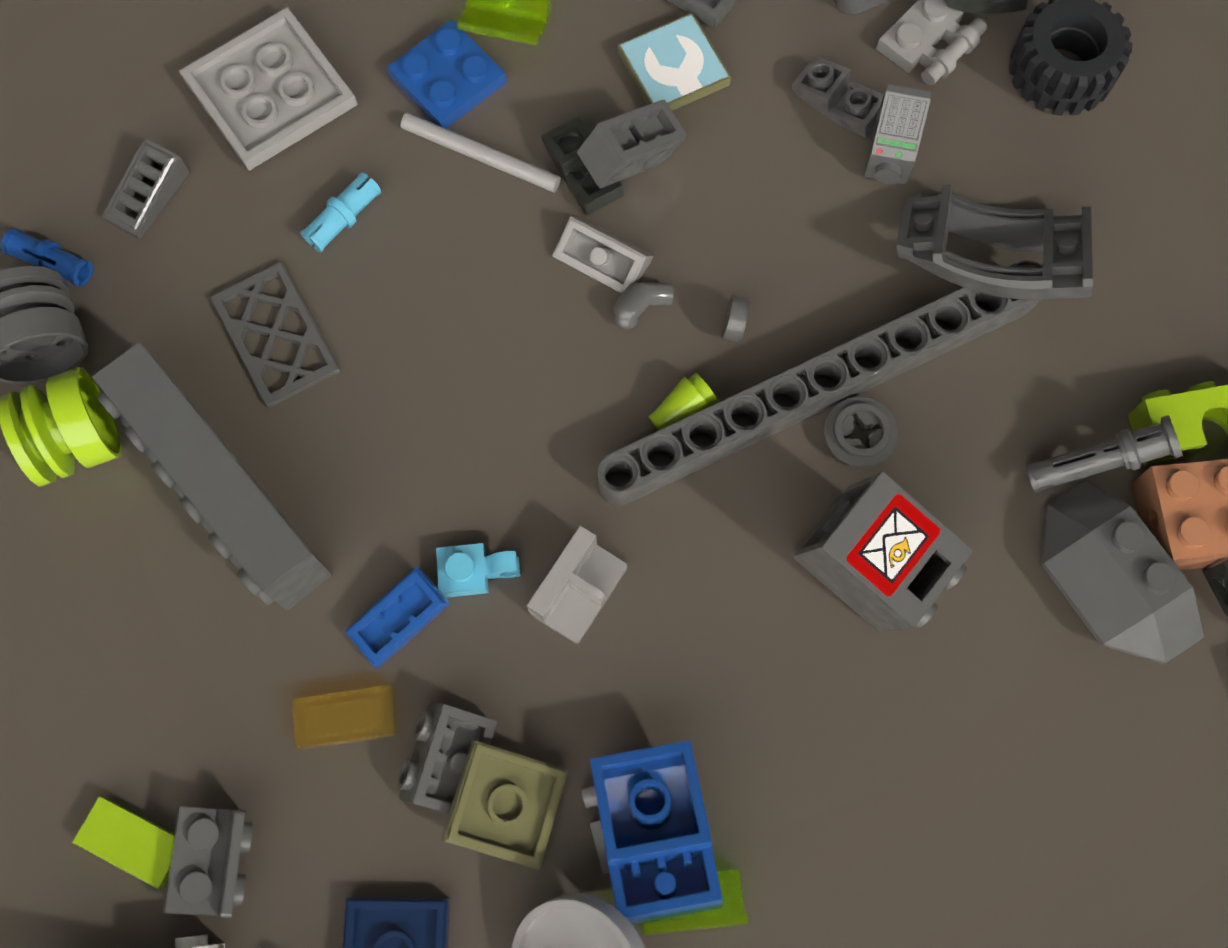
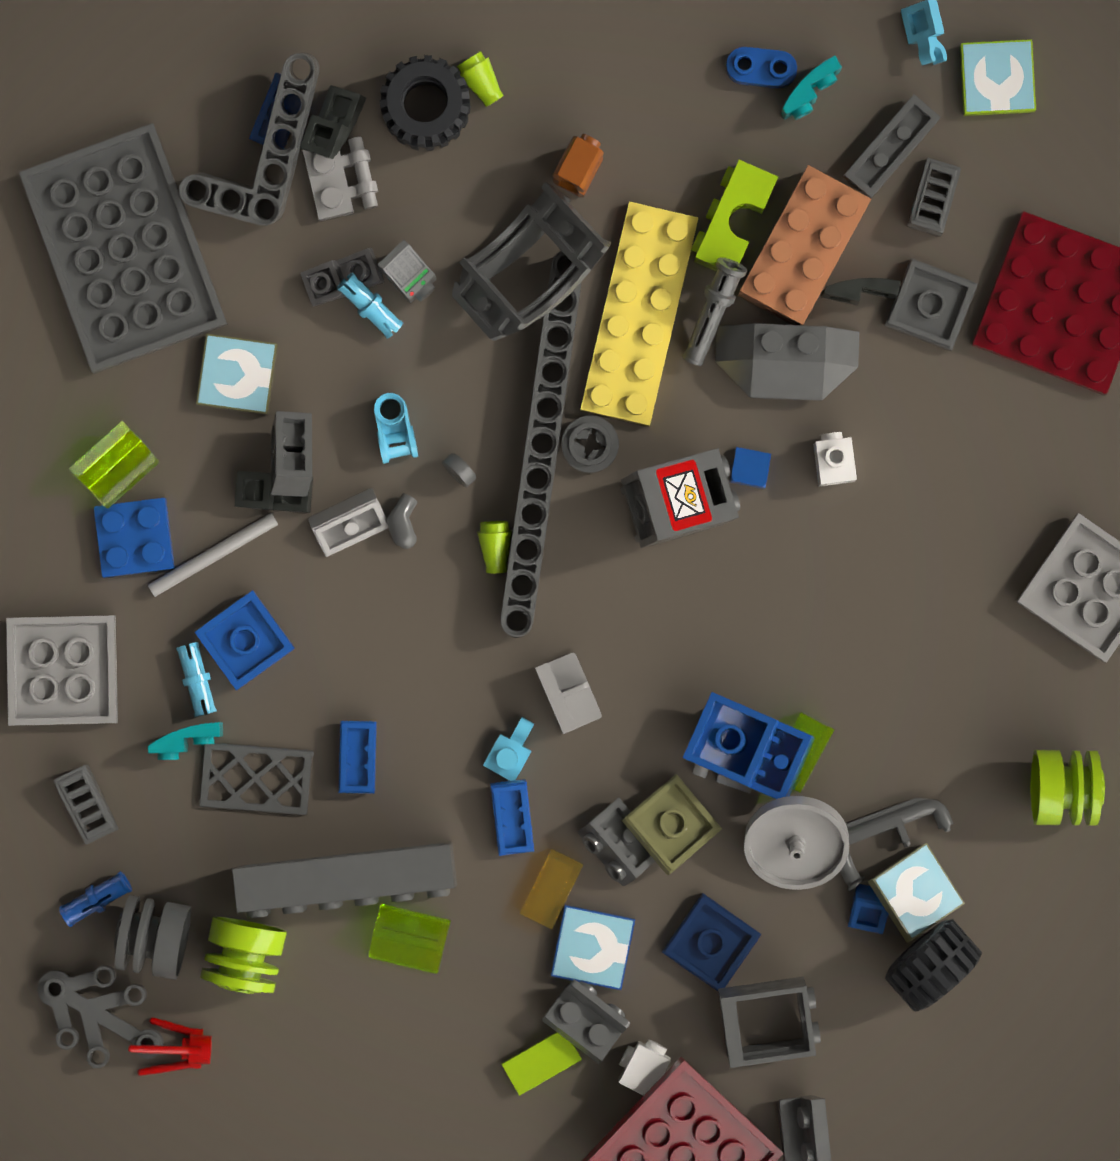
camera: 55 degrees left, 15 degrees up
(191, 595) = (409, 938): none -> clear neon green panel
(269, 234) = (177, 741): none -> teal slope
(303, 811) = (593, 947): none -> medium azure tile
(360, 414) = (357, 756): none -> blue plate
(411, 230) = (244, 640): none -> blue plate
(726, 235) = (394, 431): none -> medium azure piece
(834, 129) = (369, 305): none -> medium azure pin
(965, 619) = (750, 468): none -> blue slope
(1030, 394) = (639, 314): none -> light yellow plate
(1050, 706) = (834, 459): none -> white brick
(1133, 92) = (481, 78): none -> lime cone
(1136, 223) = (579, 165): none -> dark orange brick

